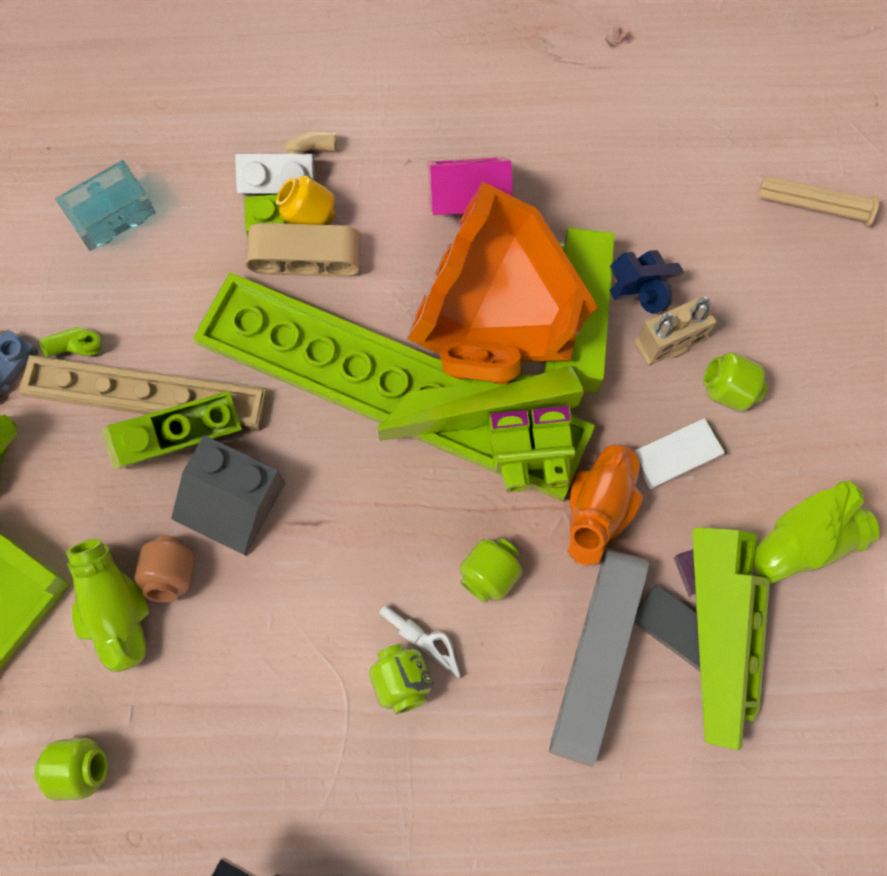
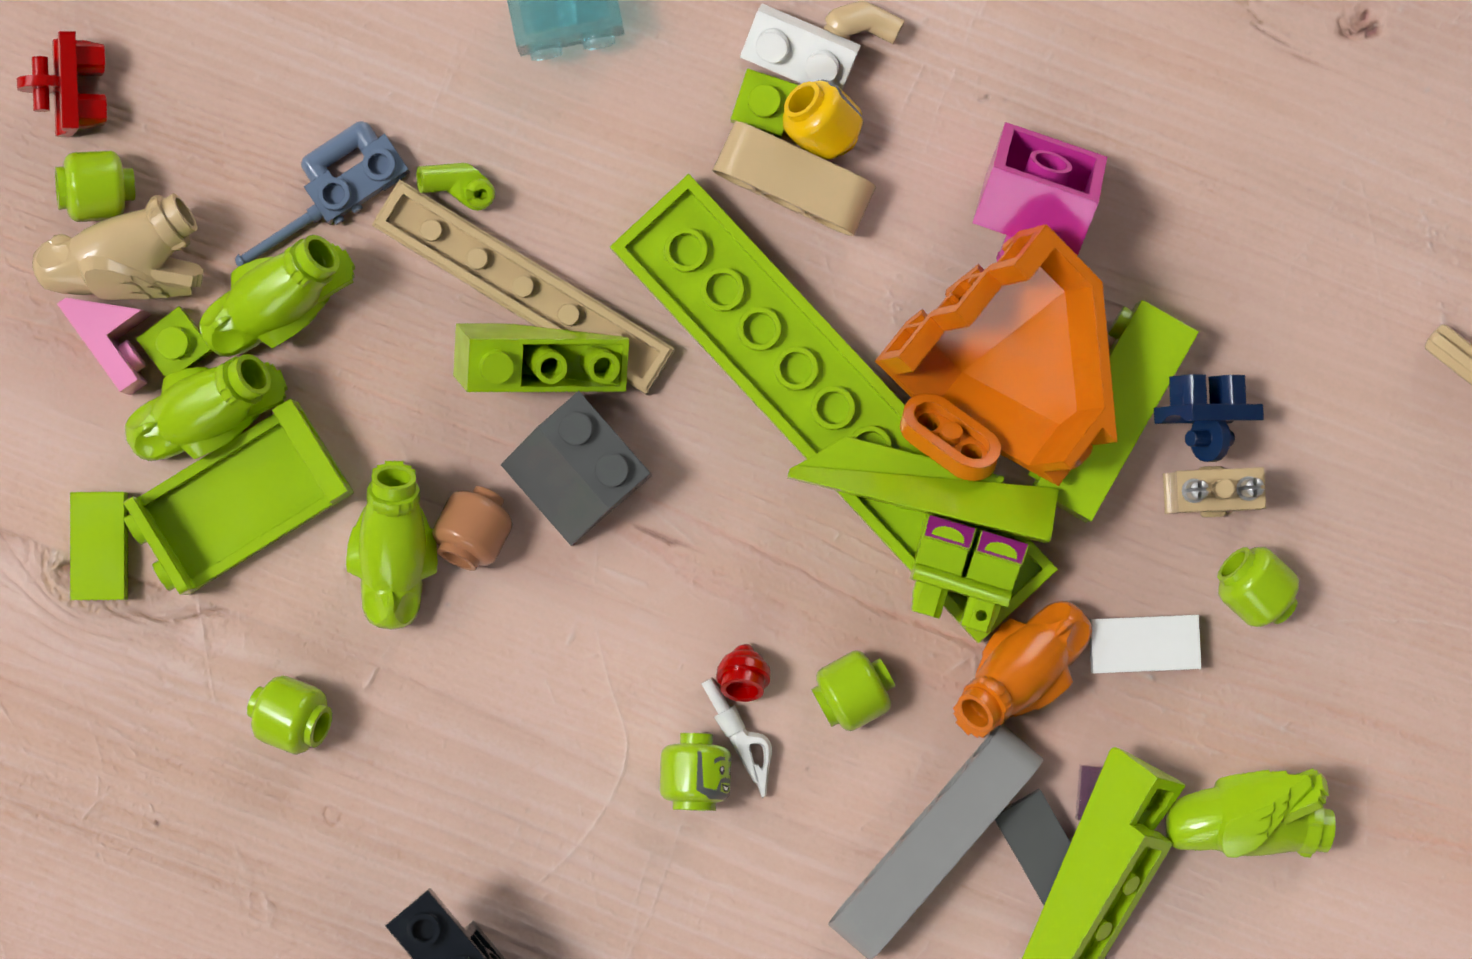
camera: 25 degrees right, 15 degrees up
(406, 592) = (743, 674): none -> red plate

